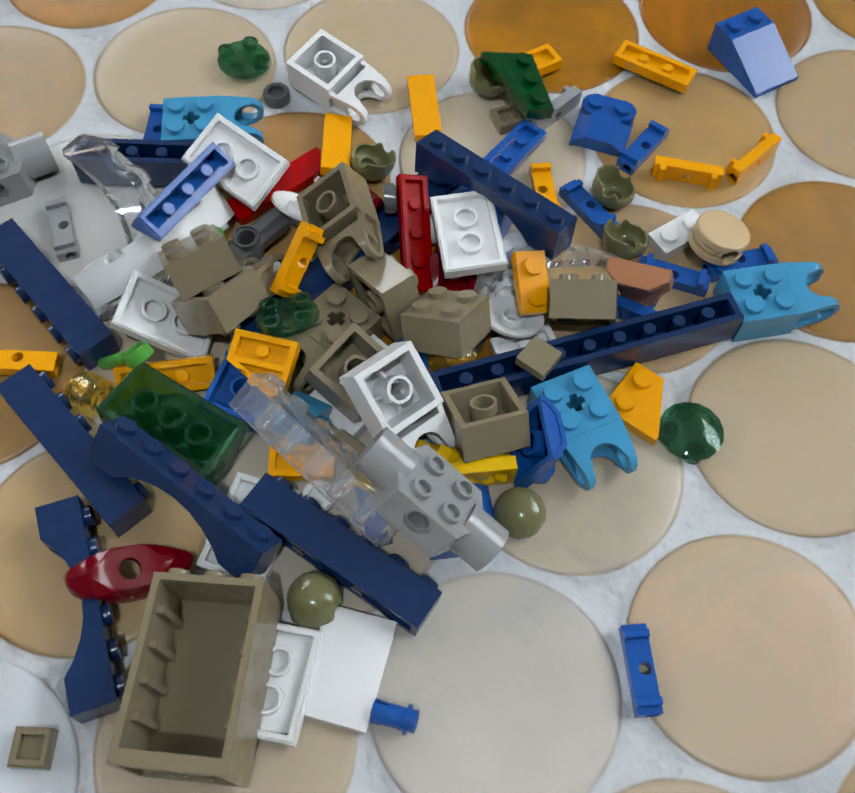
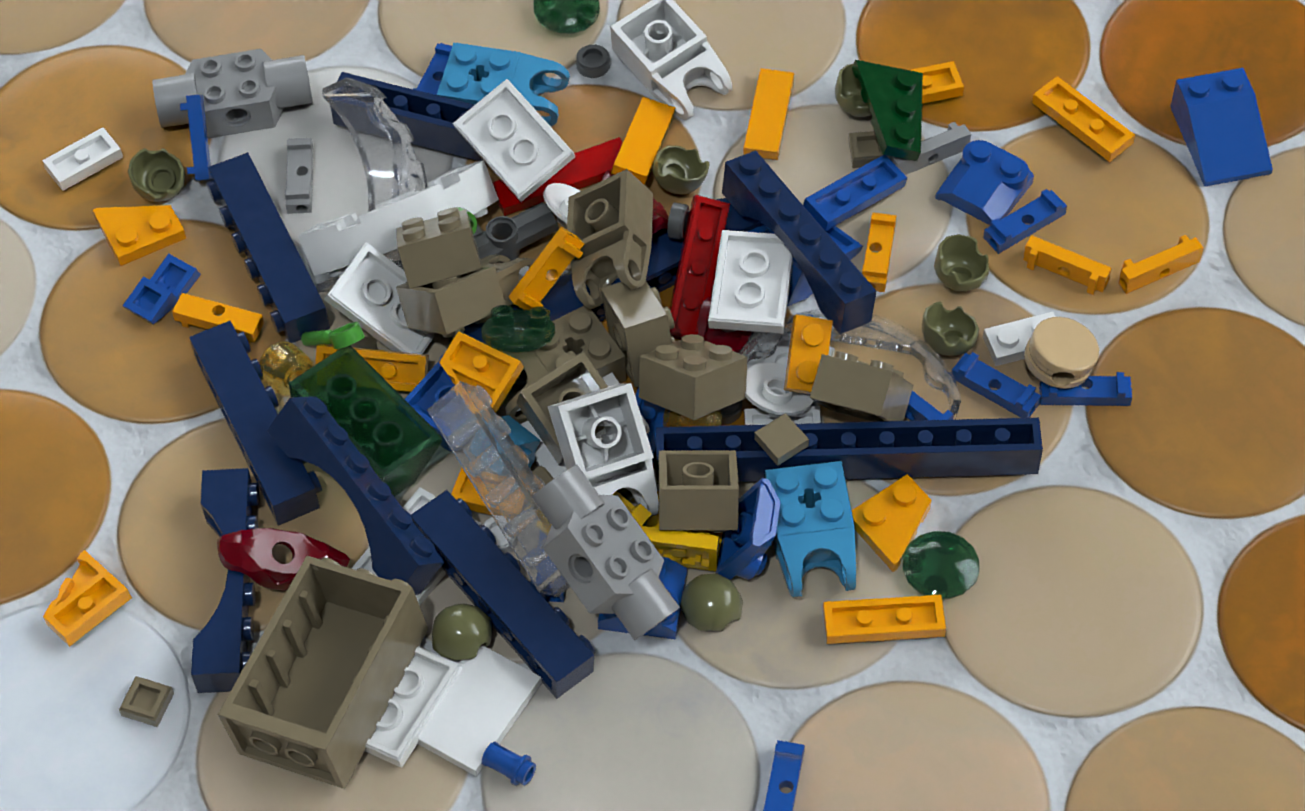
camera: 20 degrees right, 5 degrees down
(183, 193) = (444, 166): slope -> none
(586, 206) = (918, 271): blue piece -> none
(640, 281) = (932, 380): nougat slope -> none
(666, 490) = (884, 619): none -> light orange plate
(776, 298) = (1101, 440): dark azure brick -> none

